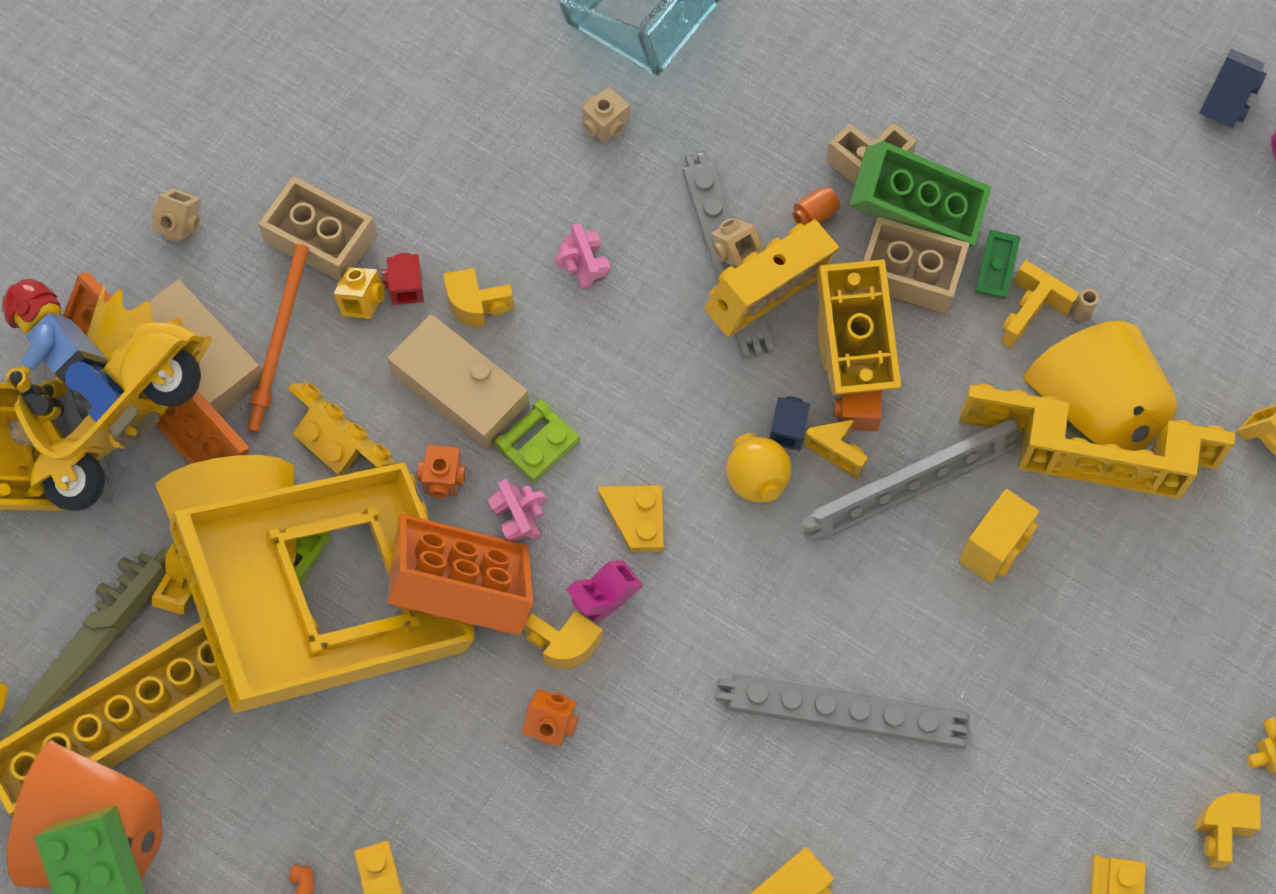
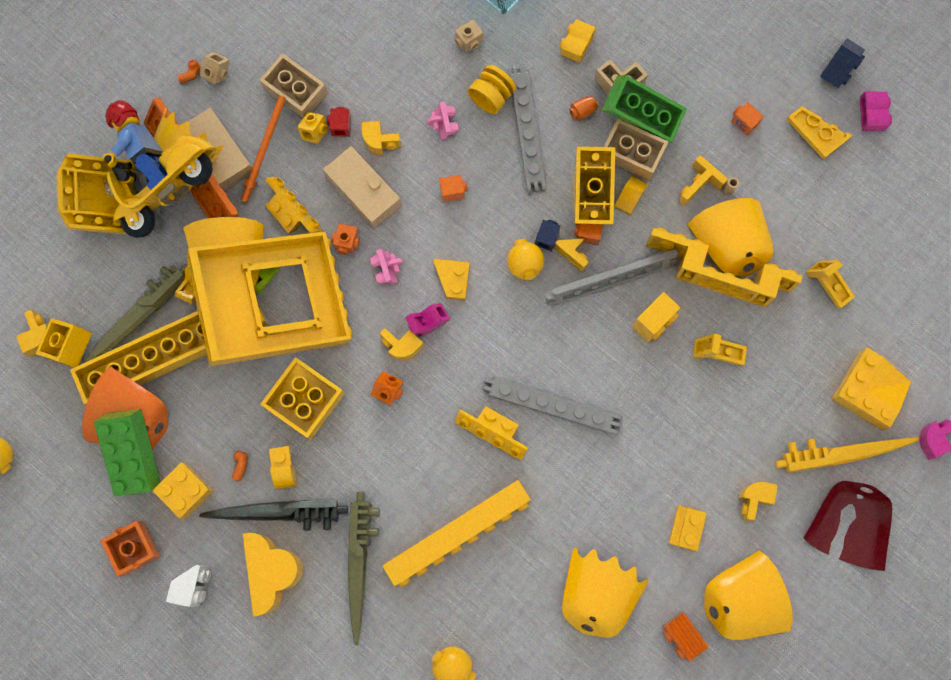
camera: 10 degrees right, 10 degrees up
(137, 227) = (192, 72): none -> orange arm
(402, 755) = (302, 398): none -> yellow slope
(460, 575) = (347, 301): orange slope -> none
(544, 448) = (405, 232): lime plate -> none
(614, 364) = (453, 188): none -> orange brick
(657, 195) = (491, 89): none -> yellow wheel
(736, 241) = (533, 124): tan brick -> none
(749, 767) = (493, 429): none -> yellow bracket
(769, 277) = (548, 147): yellow brick -> none
(788, 102) = (578, 40): none -> yellow brick
(919, 340) = (630, 195): none -> yellow slope
(997, 264) = (683, 155): green plate -> none
(1091, 193) = (747, 118): none -> orange brick
(1110, 576) = (715, 348): none -> yellow bracket
(1216, 206) = (817, 133): none -> yellow wing

